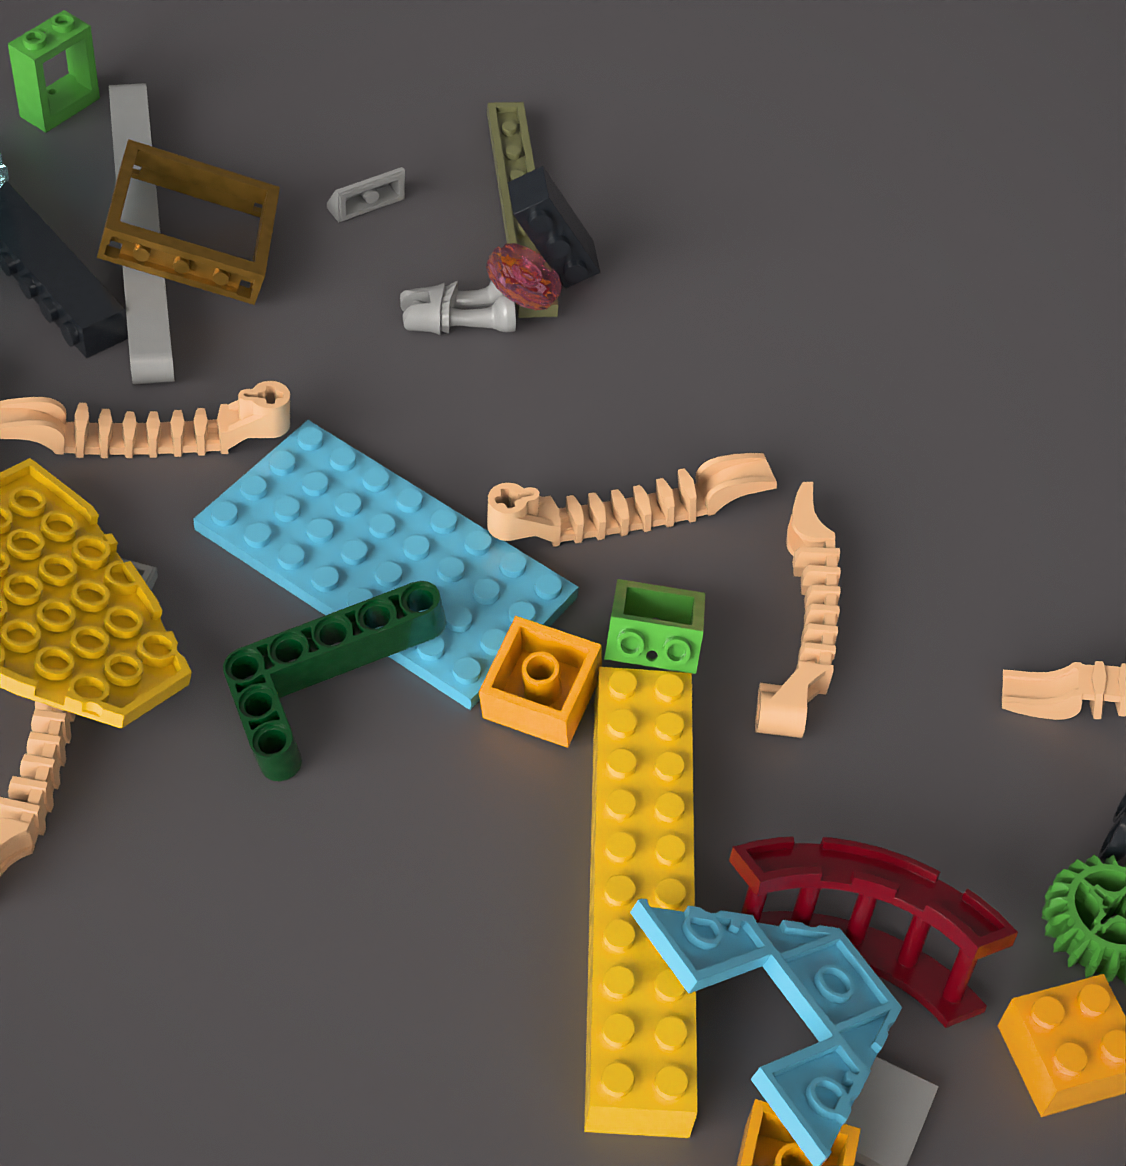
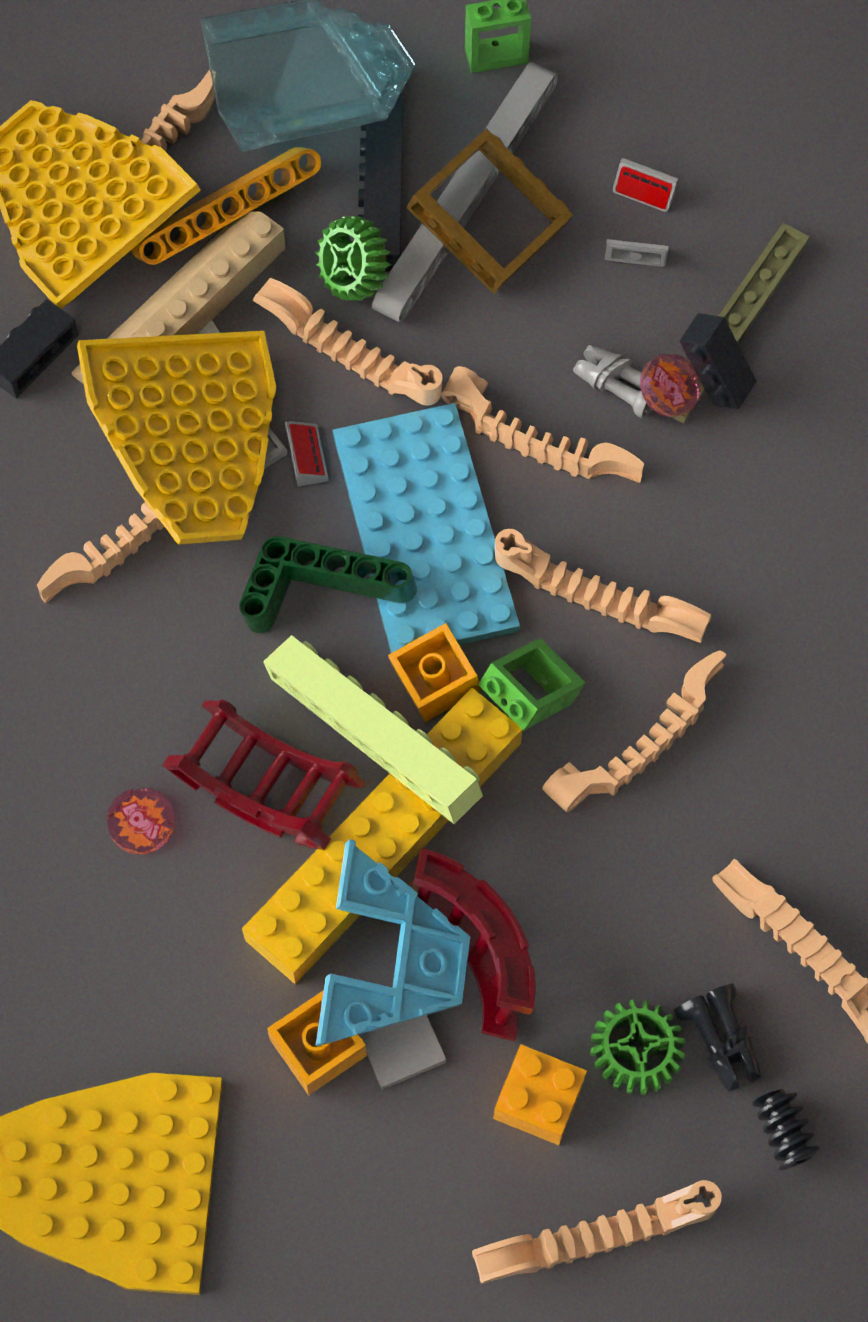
camera: 45 degrees right, 15 degrees up
(86, 304) = (361, 258): none -> bright green gear
(181, 561) = (306, 453): none -> slope
(322, 136) = (645, 185): none -> slope
(331, 408) = (467, 391): none -> light nougat piece
(333, 1083) = (140, 820): none -> clear pink tile
(461, 969) = (252, 808): none -> dark red fence
(538, 773) = (374, 729): none -> yellowish green brick

